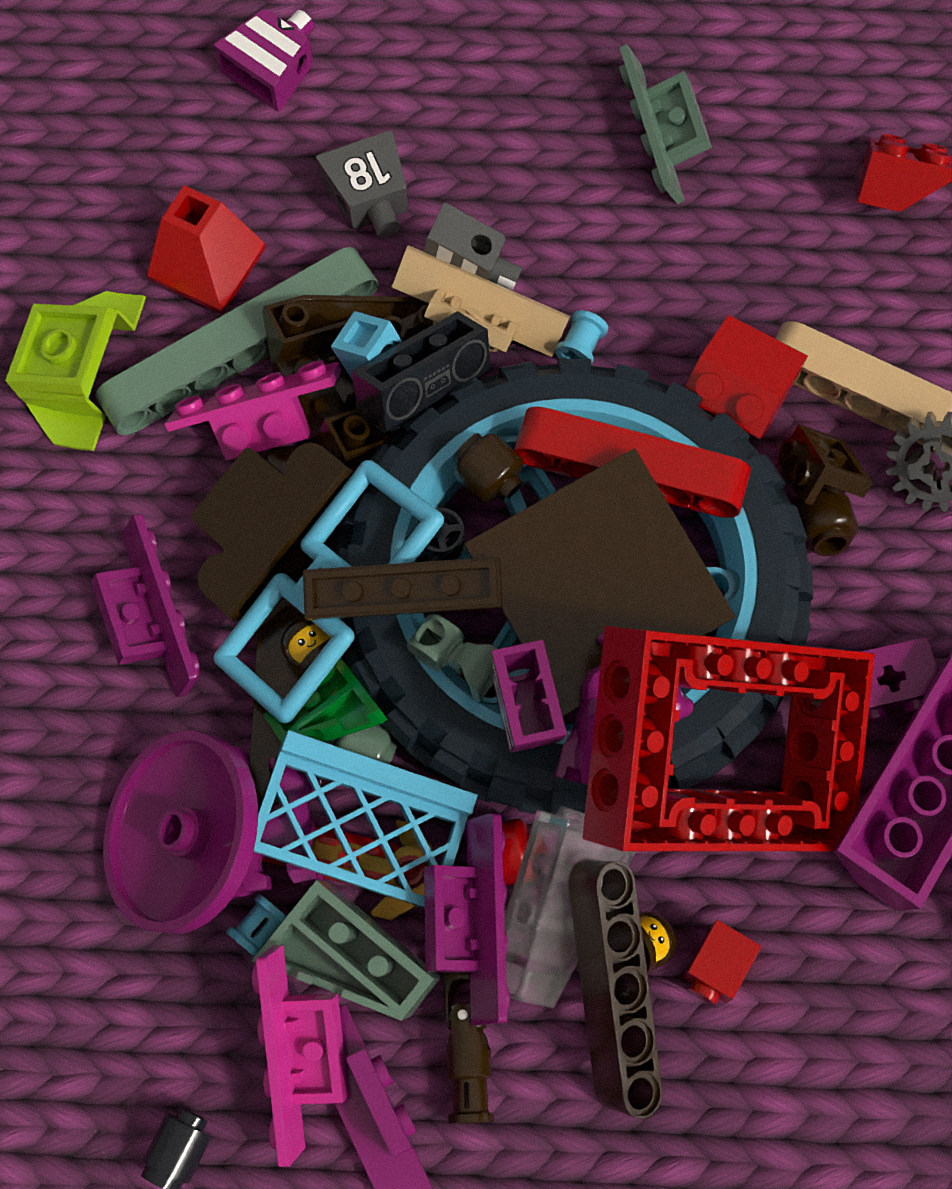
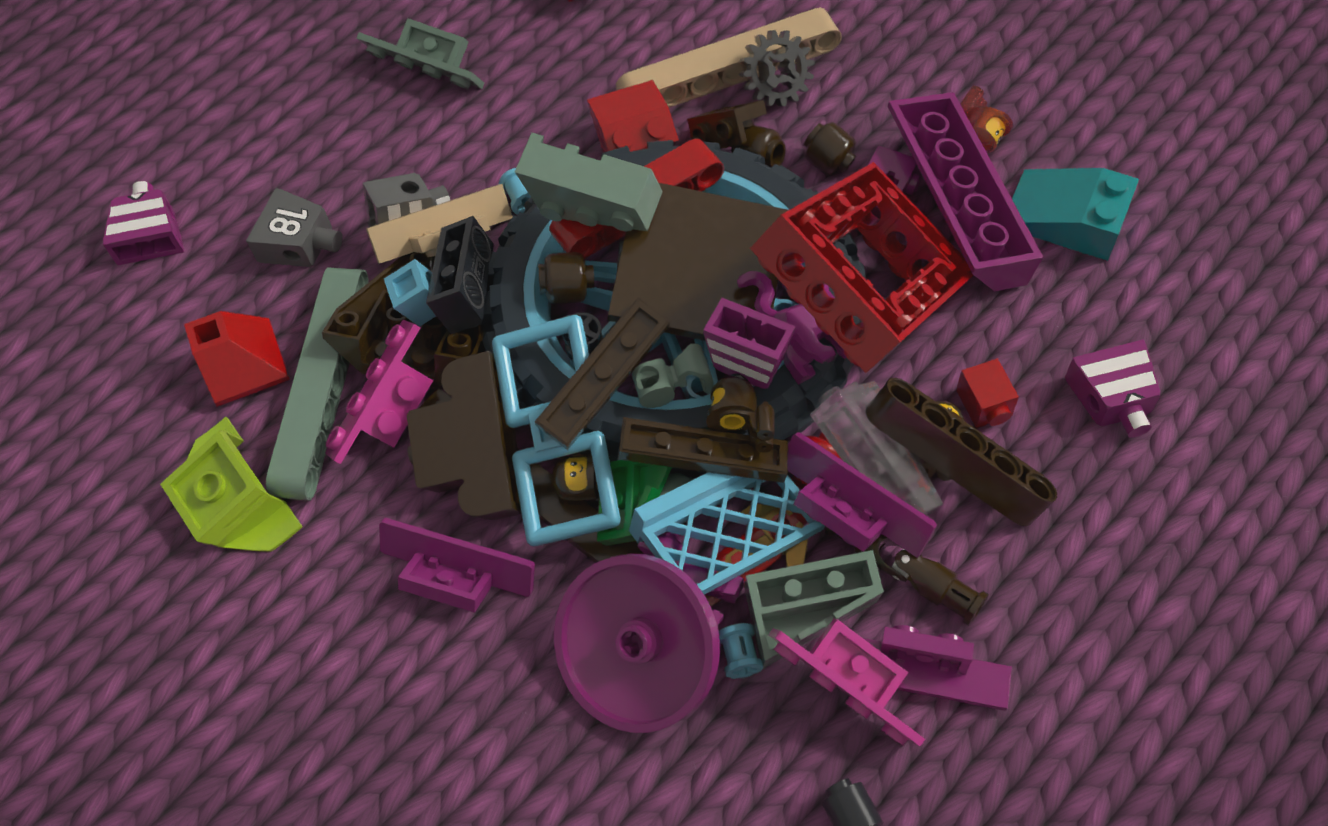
camera: 45 degrees left, 10 degrees down
(406, 742) = (701, 450): none -> dark brown tile
(468, 739) = (736, 410): none -> dark brown piece
(573, 413) = (586, 188): none -> sand green wedge
(840, 1091) = (1116, 386): none -> magenta torso
(889, 589) = (830, 148): none -> dark brown head

